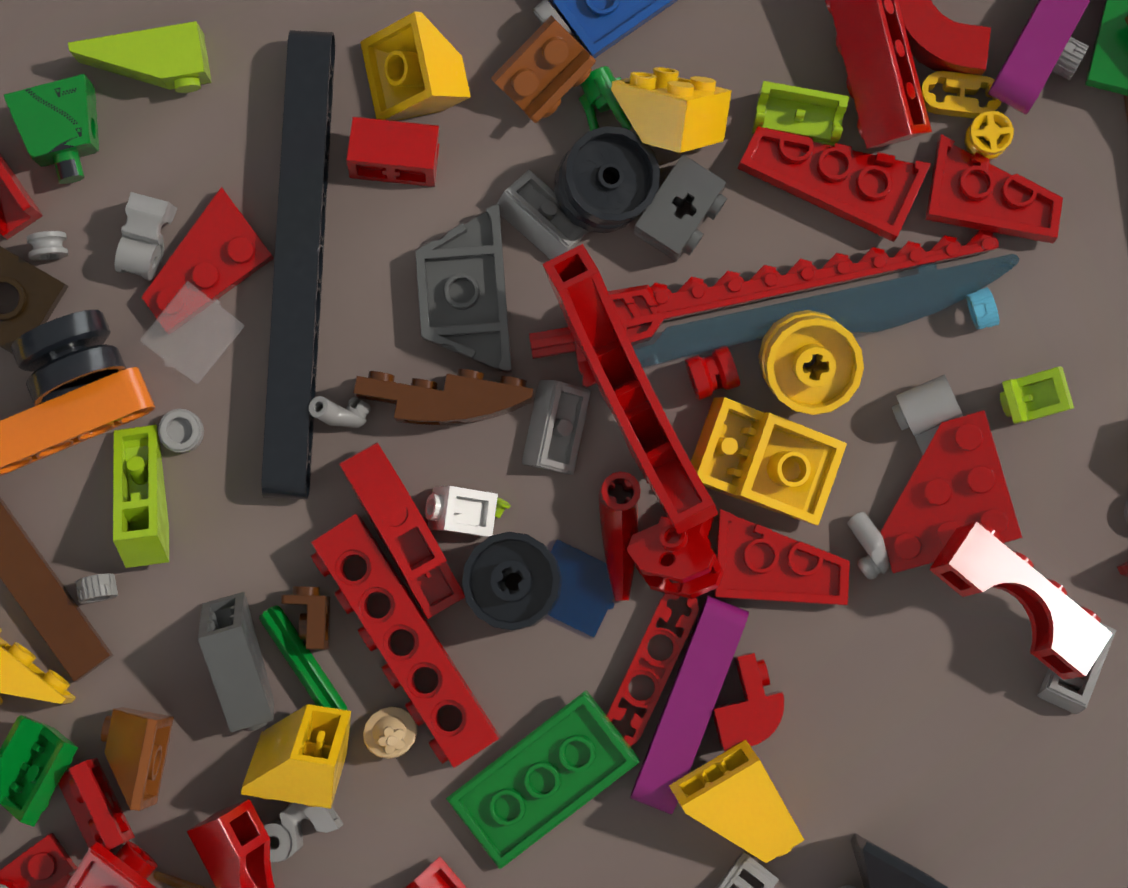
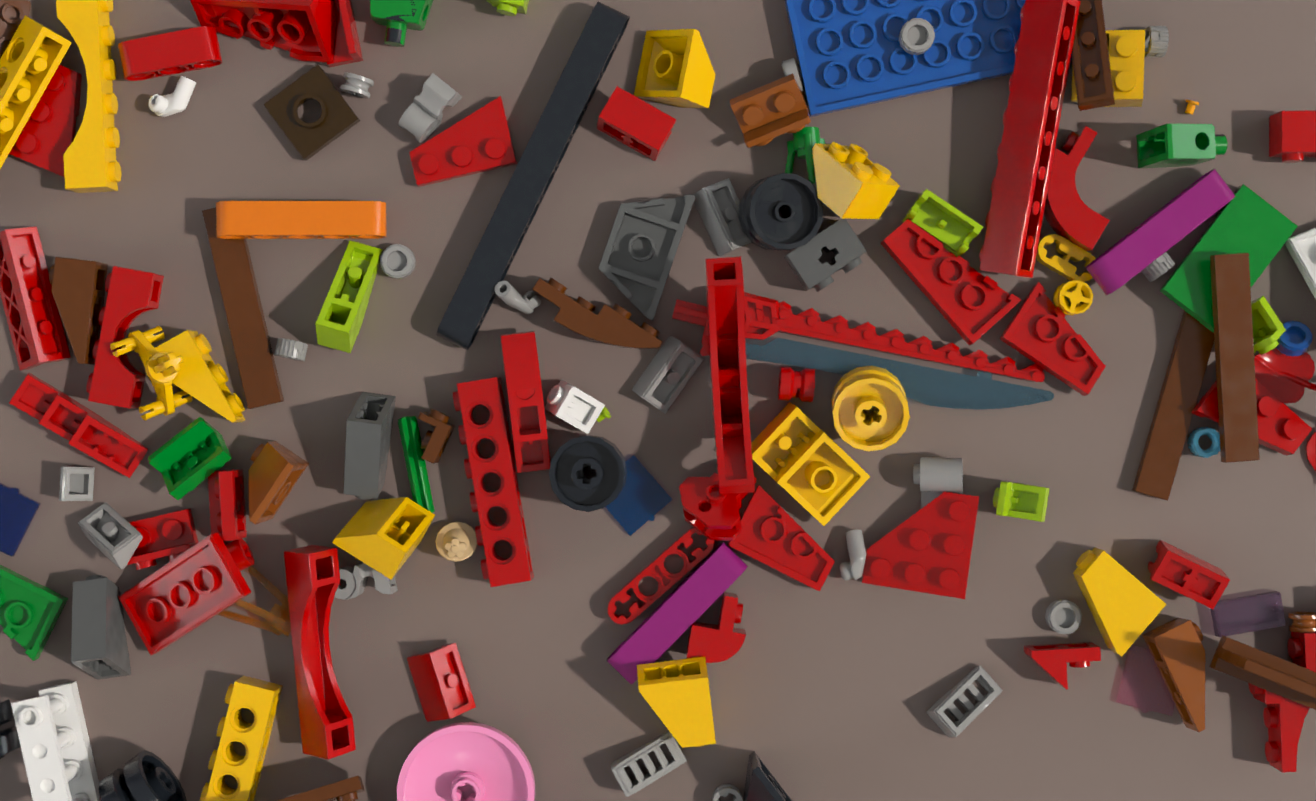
camera: 20 degrees right, 5 degrees up
(66, 354) = (337, 174): black wheel -> none
(192, 332) = (435, 194): clear piece -> none
(543, 779) = (551, 620): green tile -> none
(617, 527) = (679, 467): red piece -> none
(983, 308) = (1011, 422): medium azure axle -> none
(1063, 633) = (963, 678): arch -> none

